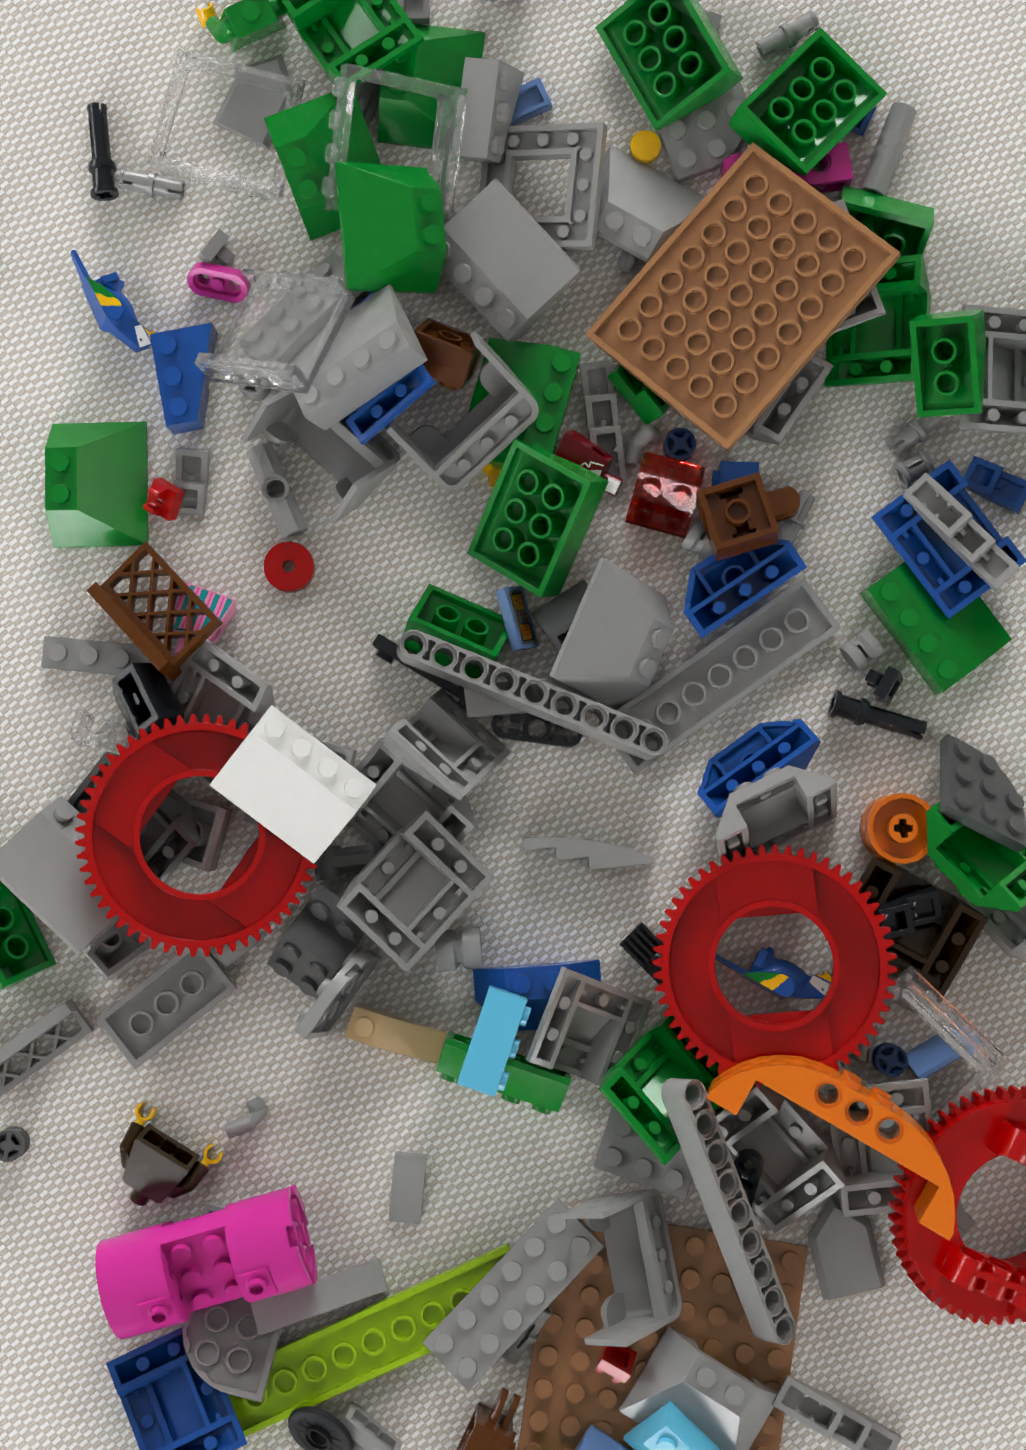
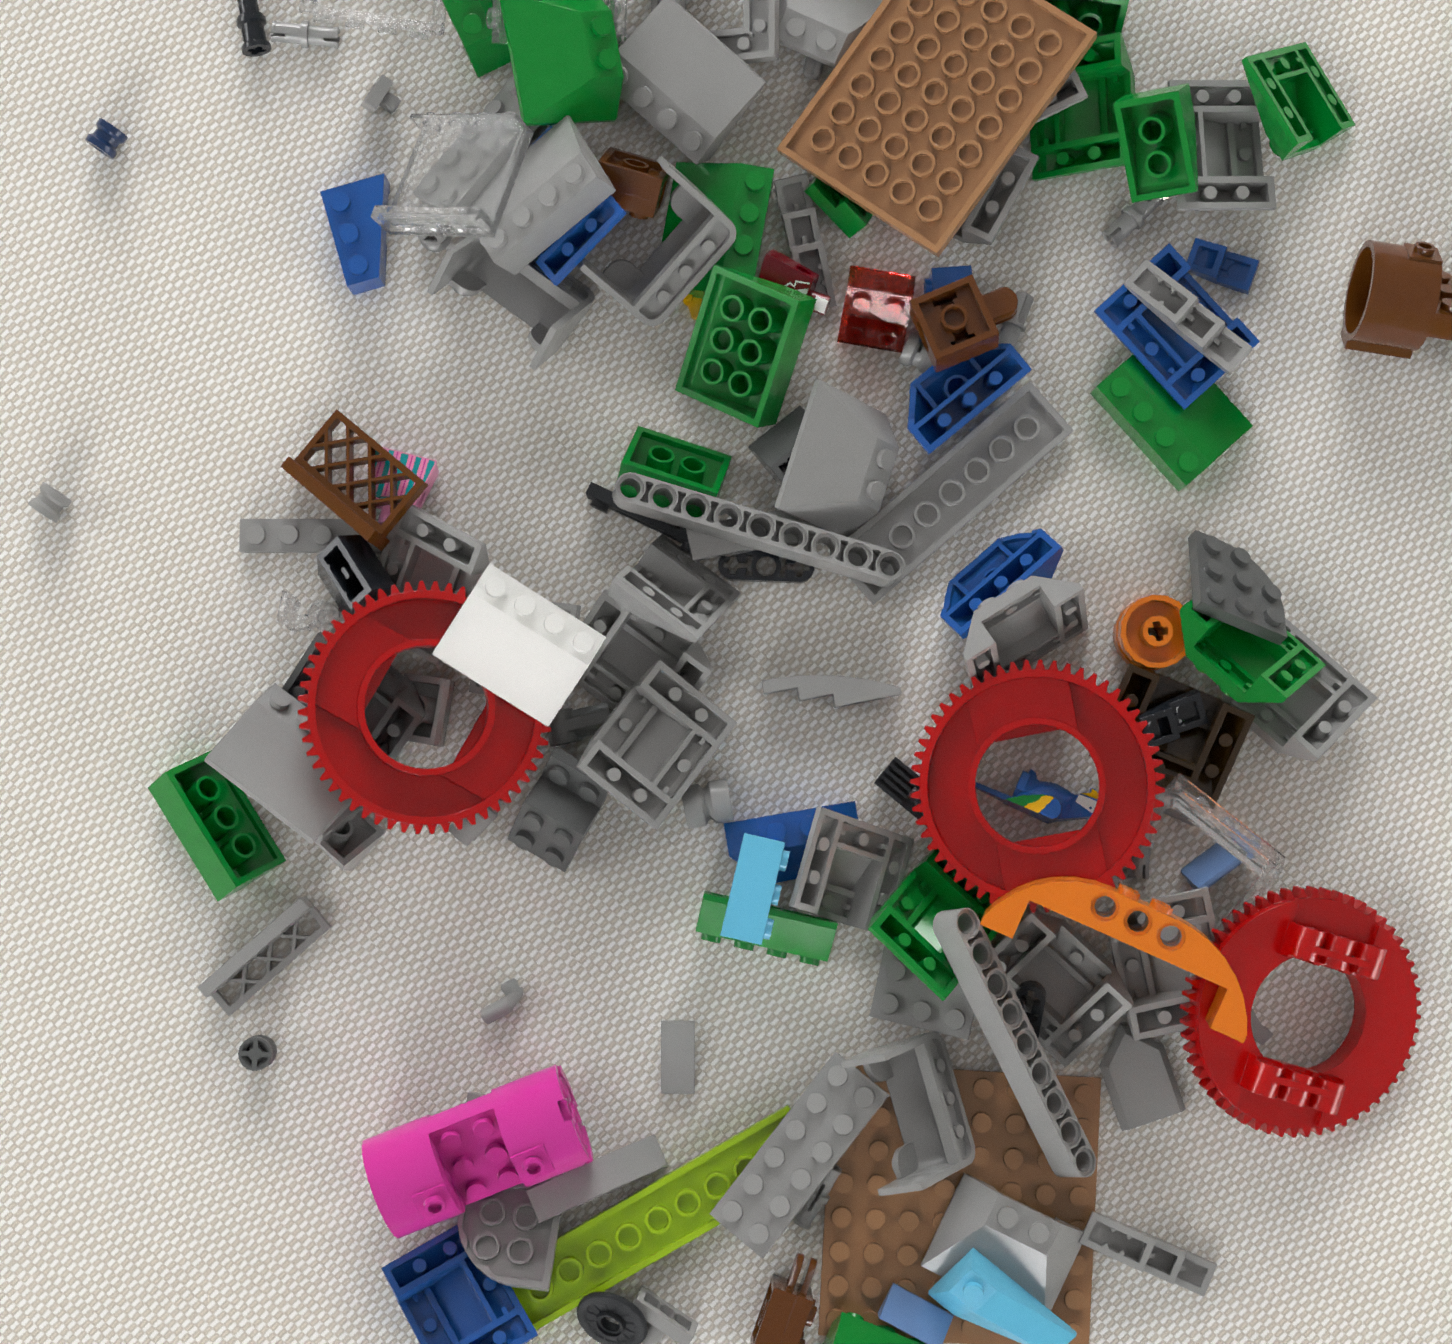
camera: 10 degrees left, 0 degrees up
(97, 484) = (279, 355): green slope -> none
(112, 308) = (277, 168): blue animal -> none
(159, 1164) = (414, 1056): dark brown torso -> none
(164, 499) = (351, 363): red tile -> none
(166, 1005) = (406, 891): light grey plate -> none
(192, 477) = (377, 342): light grey slope -> none
(220, 282) = (387, 130): dark pink plate -> none
(270, 473) = (459, 326): light grey piece -> none
(289, 581) = (486, 407): red piece -> none
(336, 995) = (585, 861): light grey plate -> none
(395, 1033) = (649, 898): tan slope -> none
(517, 618) = (734, 453): tile -> none
(616, 1362) = (913, 1213): red tile -> none
(639, 439) = (847, 250): light grey arm -> none
(683, 440) = (889, 250): dark blue wheel -> none
(861, 650) = (1097, 451): light grey wheel -> none
(862, 712) = (1105, 516): black pin -> none
(884, 685) = (1125, 485): black tile -> none
(895, 1062) = (1173, 876): dark blue wheel -> none
(913, 468) = (1133, 256): light grey bush -> none

